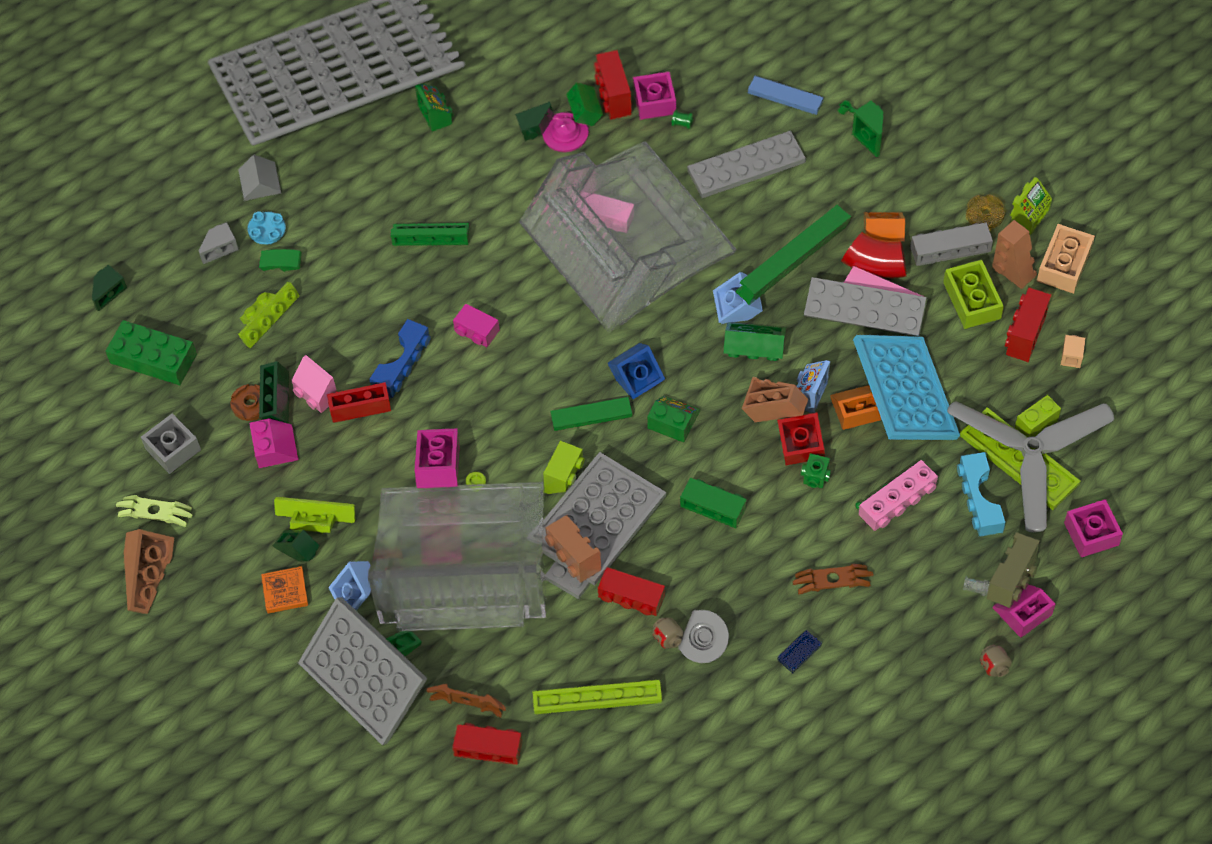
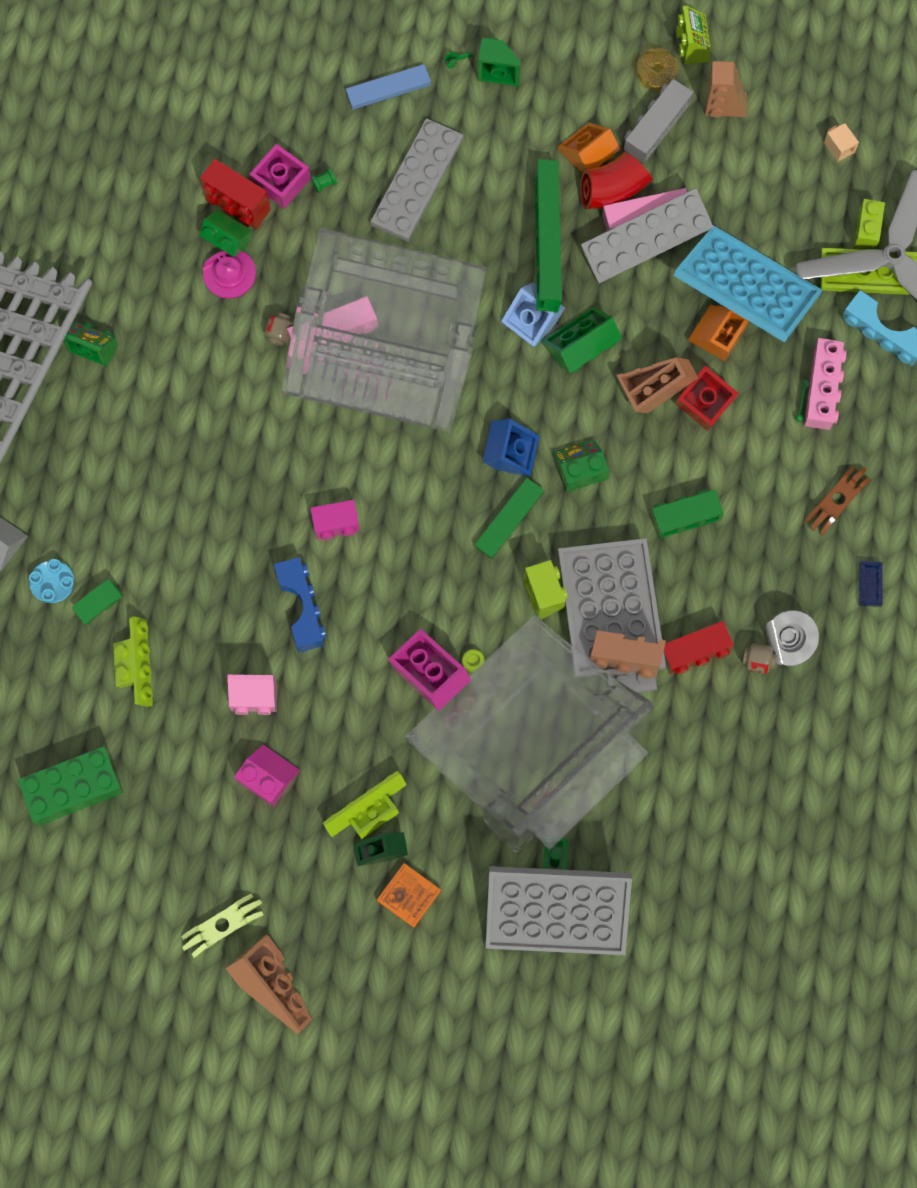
camera: 45 degrees left, 15 degrees up
(170, 443) = (179, 854): light grey brick -> none
(217, 243) = (23, 632): light grey slope -> none
(238, 400) = (207, 768): dark orange tile -> none
(274, 392) = (224, 731): dark green brick -> none
(352, 583) = (477, 845): light blue slope -> none
(359, 402) = (307, 675): red brick -> none
(430, 234) = (208, 470): green fence -> none
(486, 703) = (677, 842): dark orange piece -> none
(487, 744) = (709, 877): red brick -> none
(535, 120) = (195, 285): dark green slope -> none
(597, 697) = (755, 761): lime plate -> none
(813, 383) = (668, 339): light blue slope -> none
(816, 471) = (743, 417): green brick -> none
(973, 294) = (720, 153): lime brick -> none
(1027, 324) = (790, 147): red brick -> none
(1065, 258) = (763, 61): light nougat brick -> none

